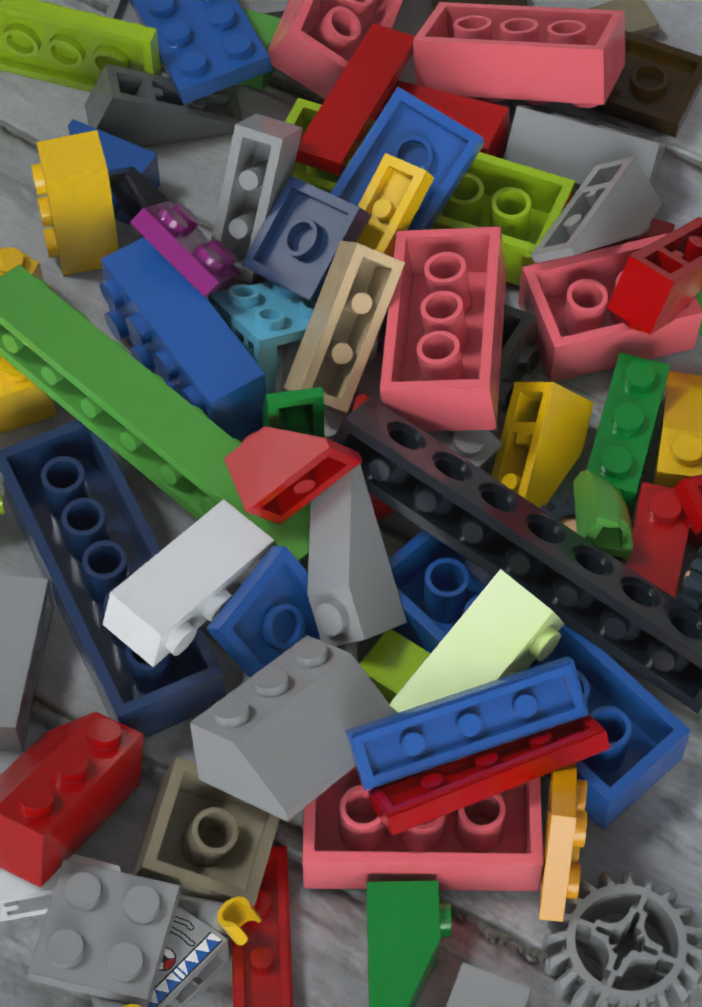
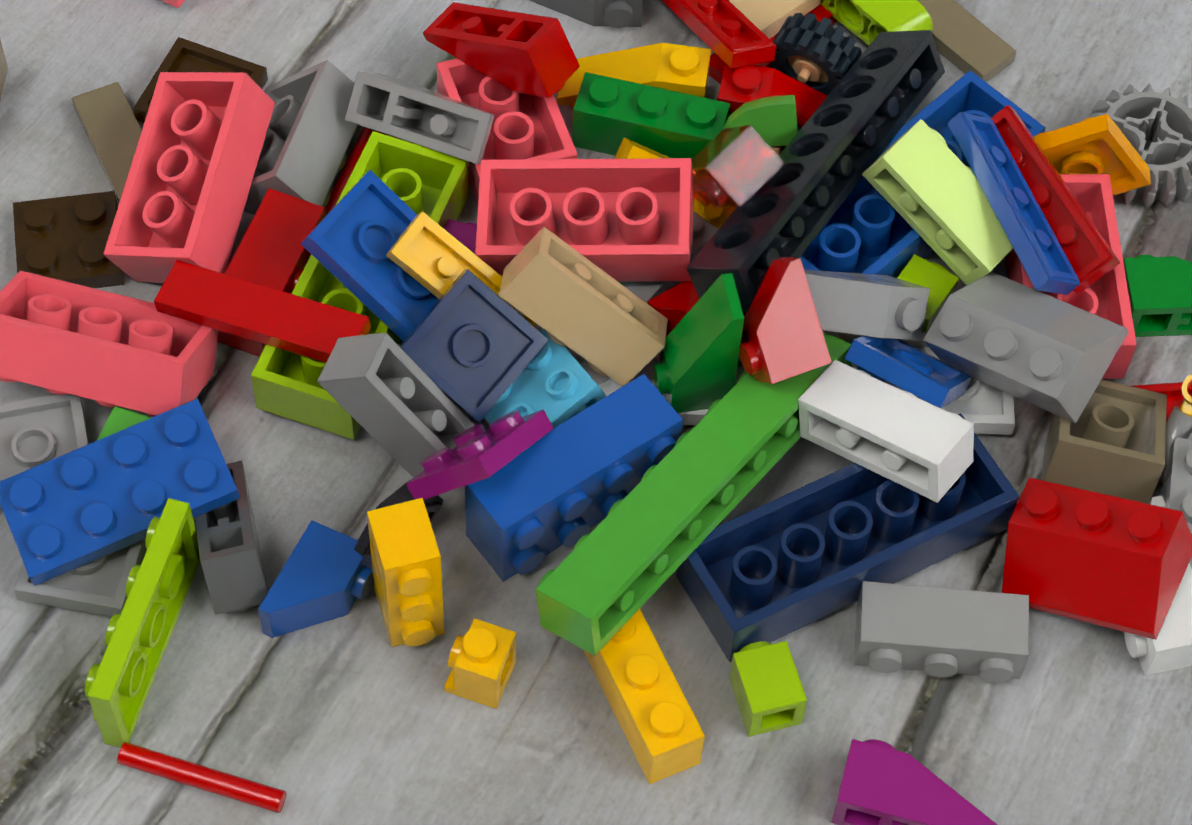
camera: 95 degrees left, 0 degrees up
(514, 457) = (733, 167): none -> clear red brick

